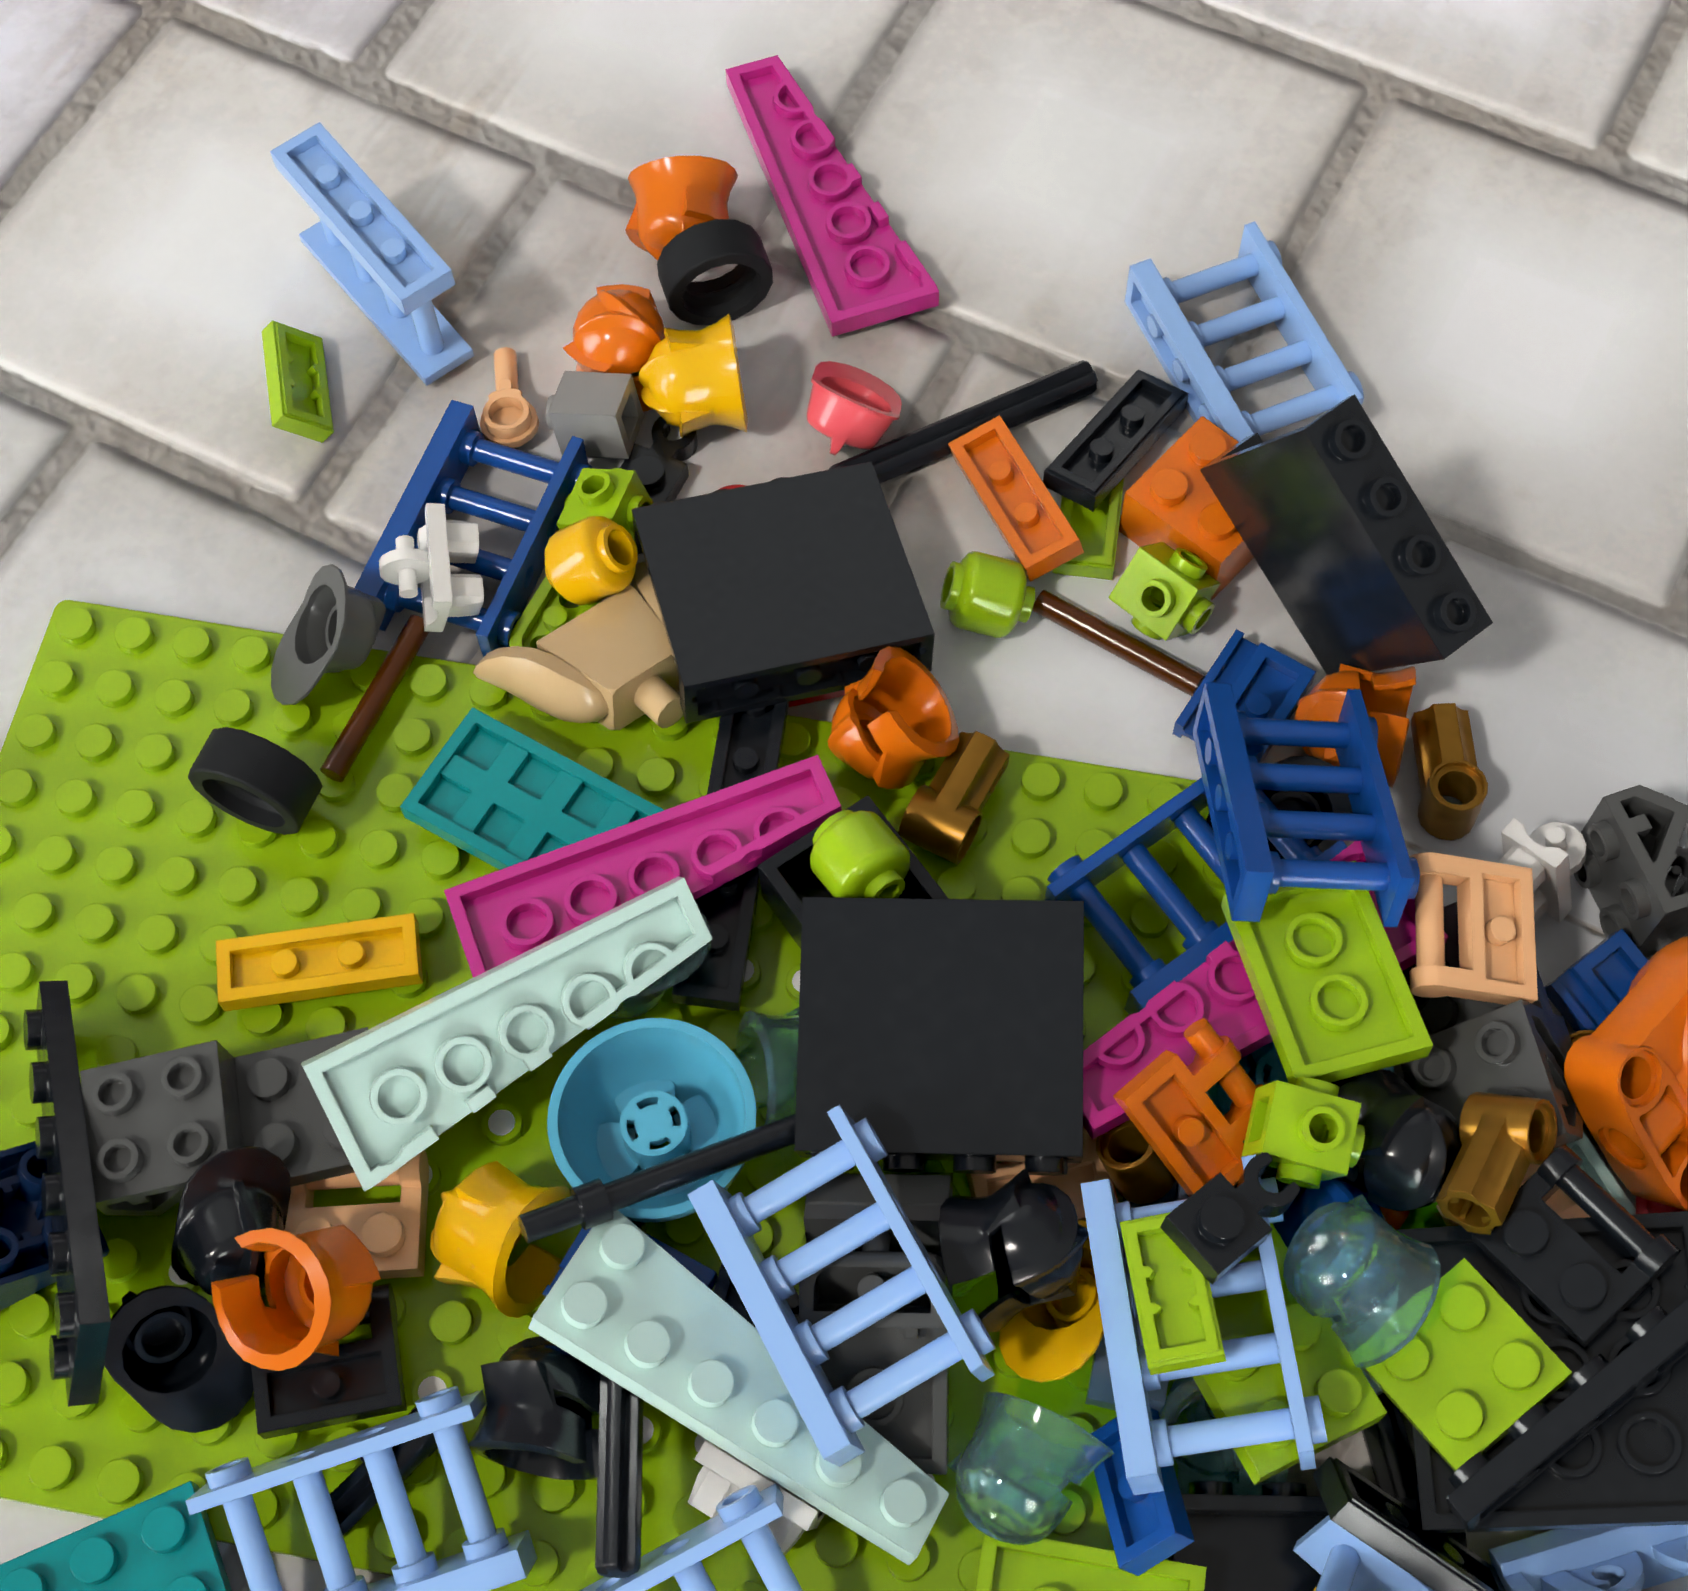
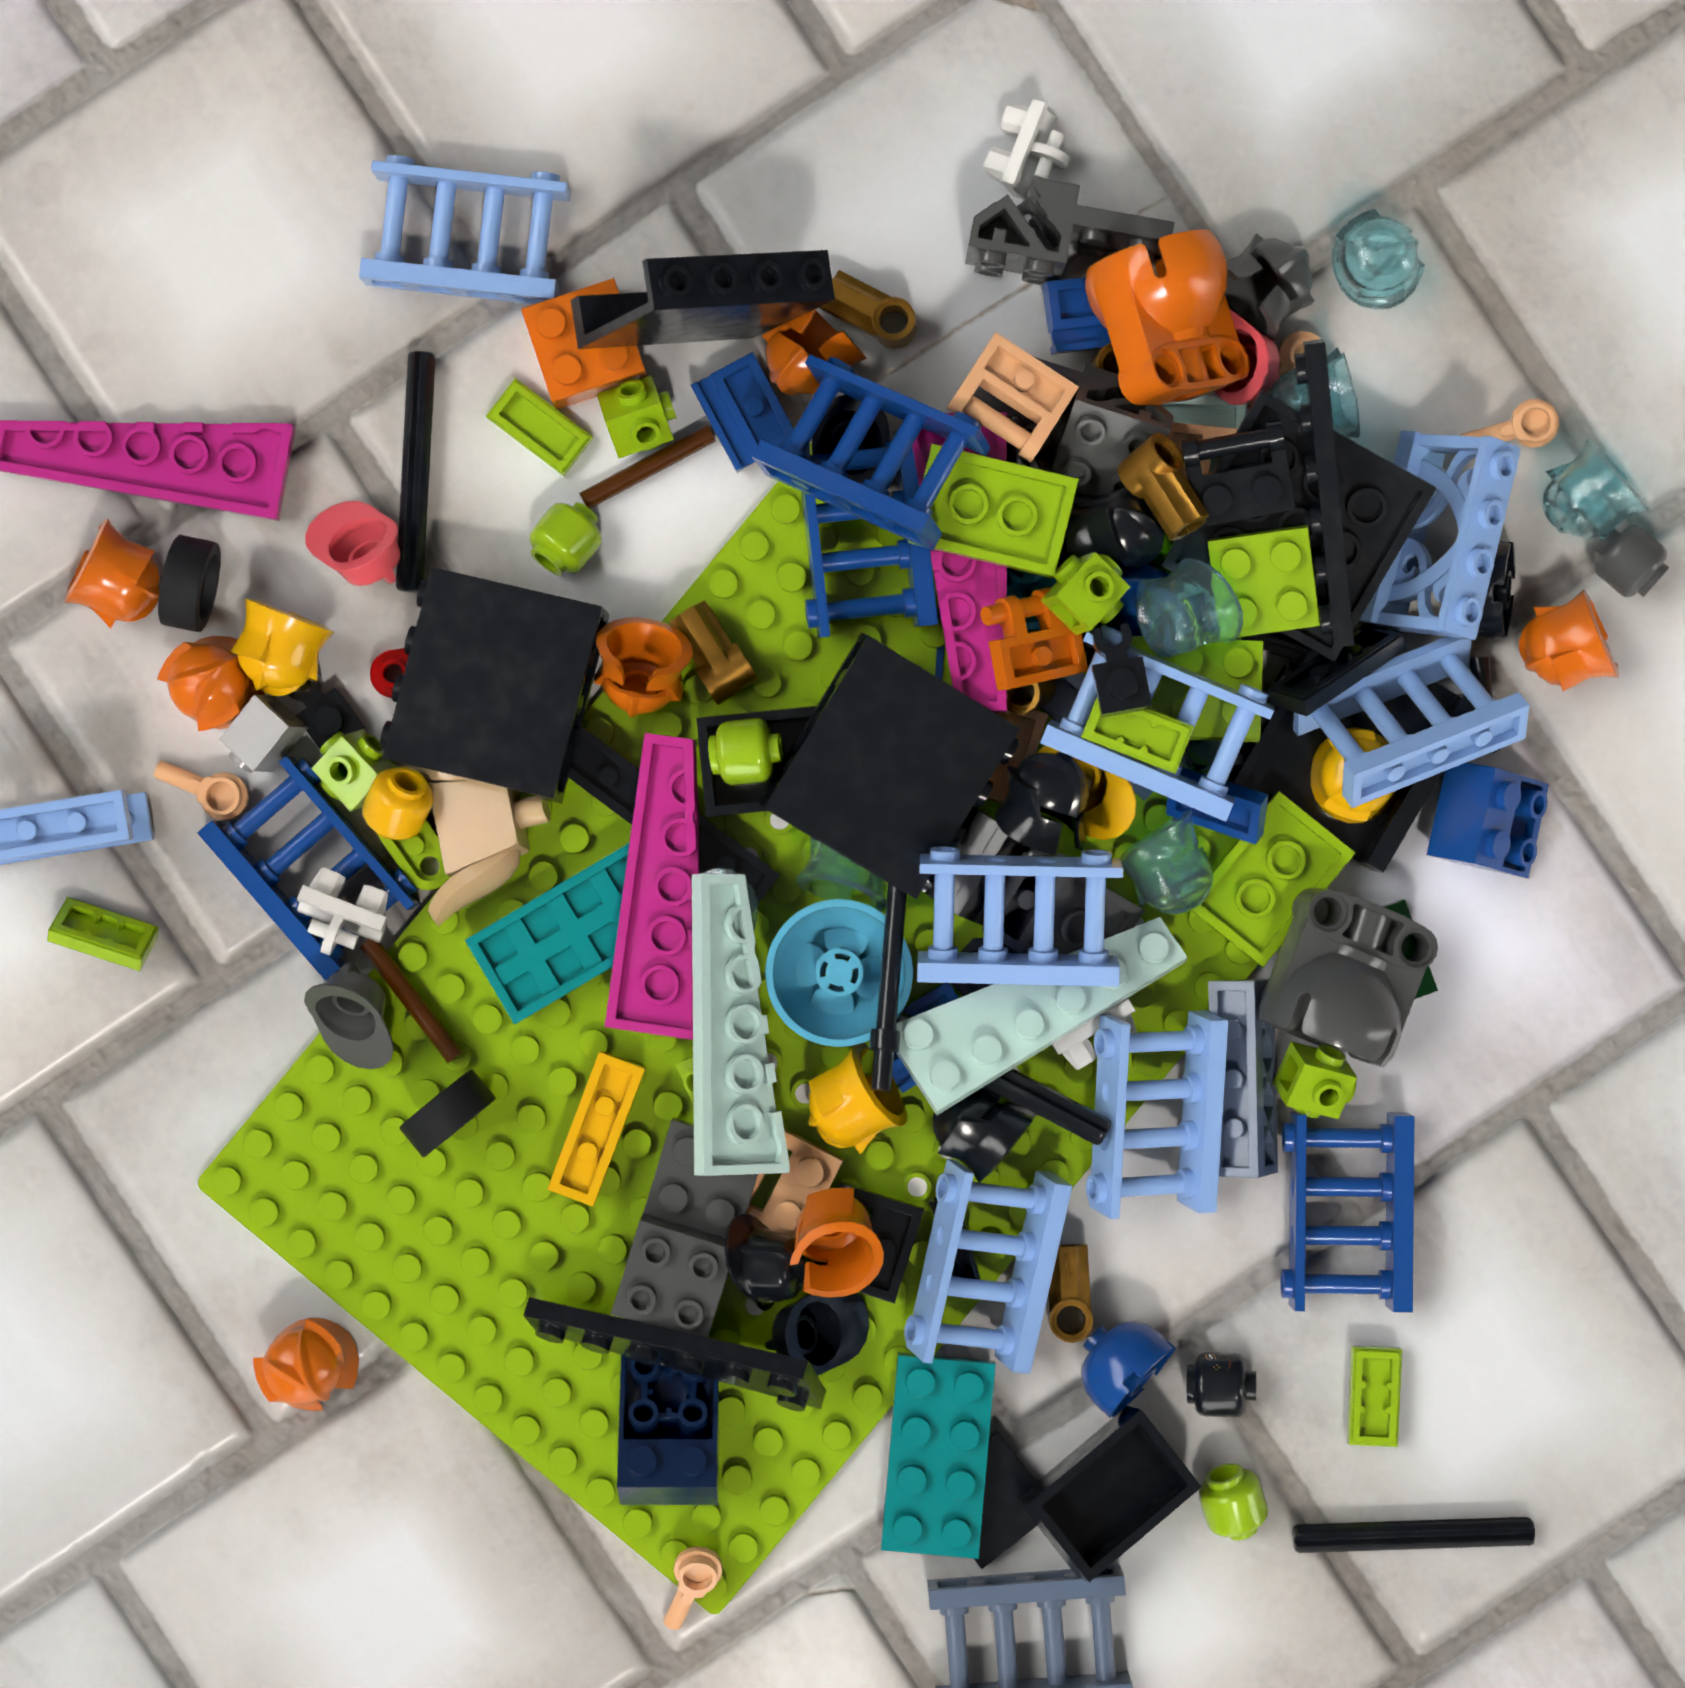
camera: 60 degrees left, 25 degrees up
(1015, 498) = (499, 473): orange plate -> none
(1115, 440) = (490, 371): black tile -> none
(1554, 855) = (980, 309): white hips -> none

